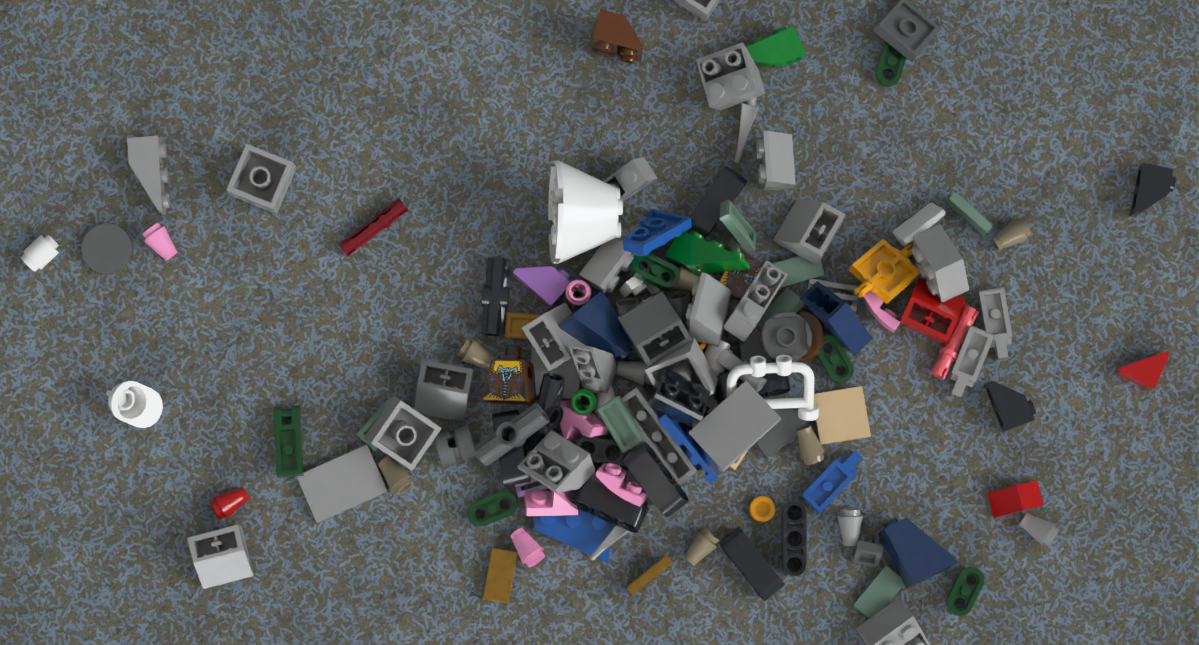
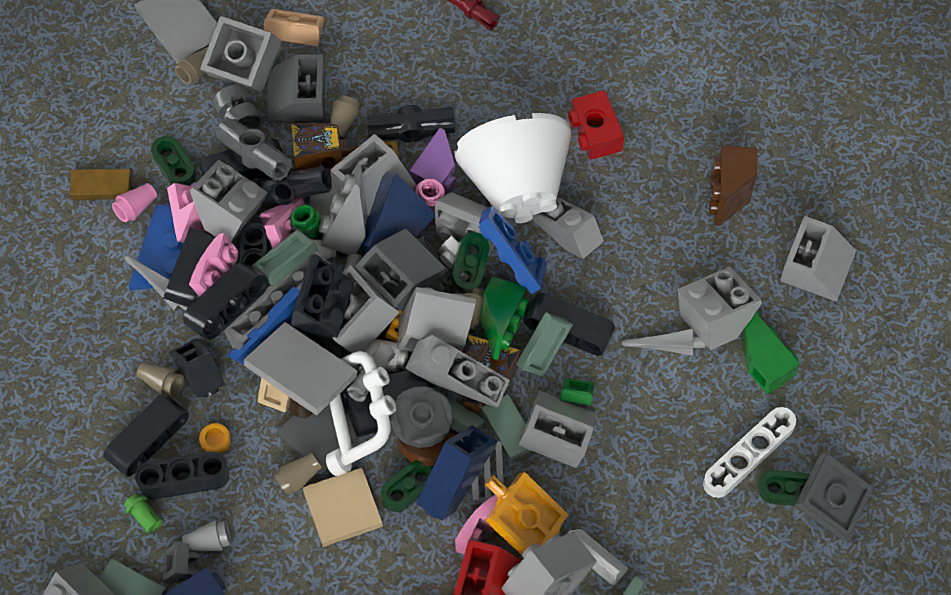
camera: 80 degrees right, 20 degrees down
(367, 382) = (294, 26): none -> light nougat slope
(516, 131) = (596, 110): none -> red brick
(648, 575) = (118, 328): pearl gold tile -> none
(698, 514) = (198, 368): none -> black slope
(777, 160) = (633, 373): light grey slope -> none
(778, 208) = (577, 391): none -> green tile
(818, 575) = (143, 513): none -> bright green pin
(831, 482) = (259, 508): blue hinge -> none
(856, 83) = (747, 450): none -> white beam

